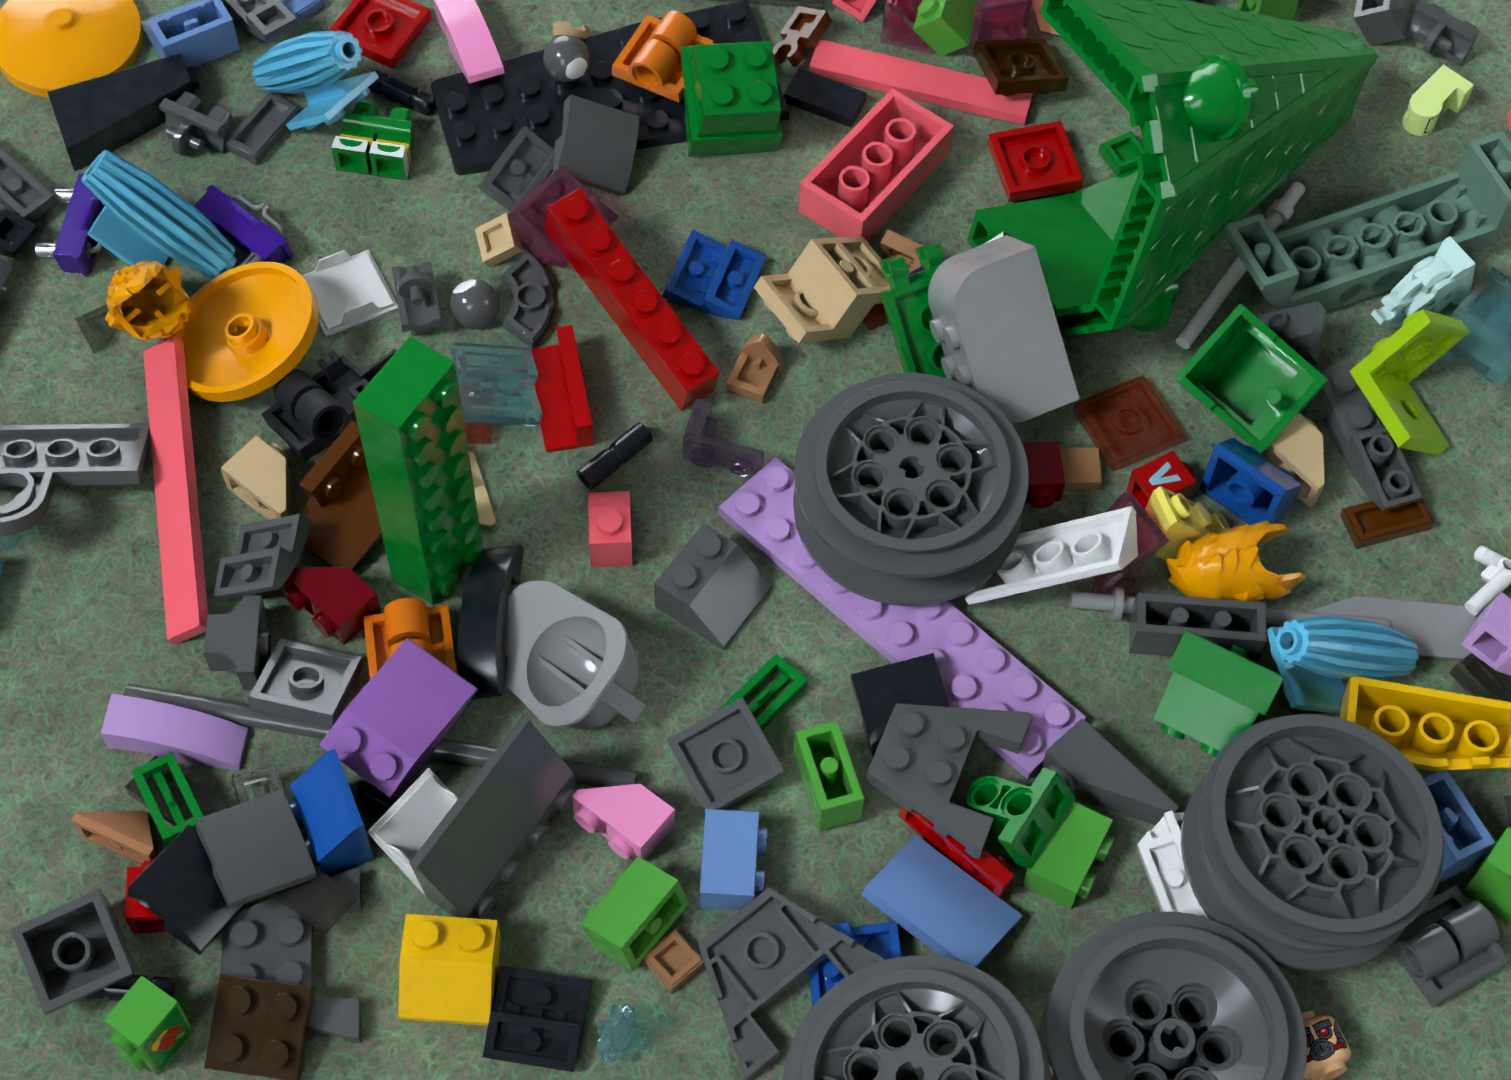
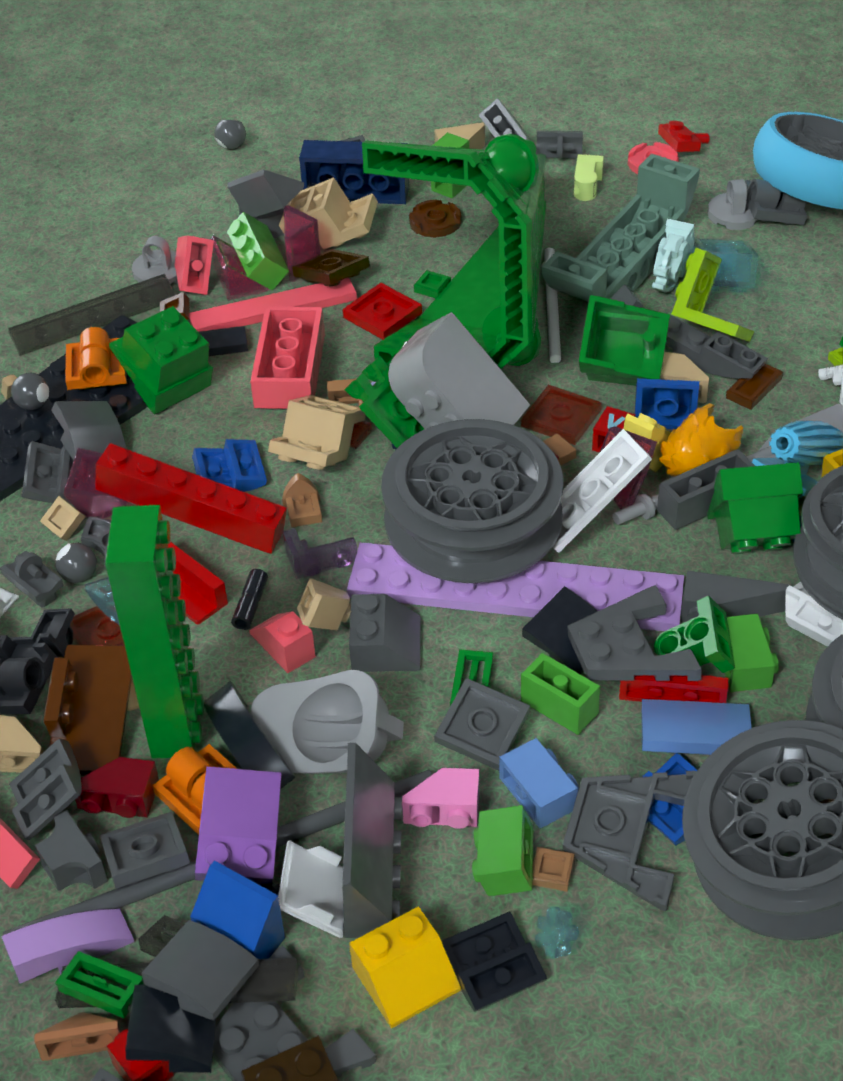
camera: 30 degrees left, 15 degrees down
(667, 518) = (323, 606): none -> tan slope

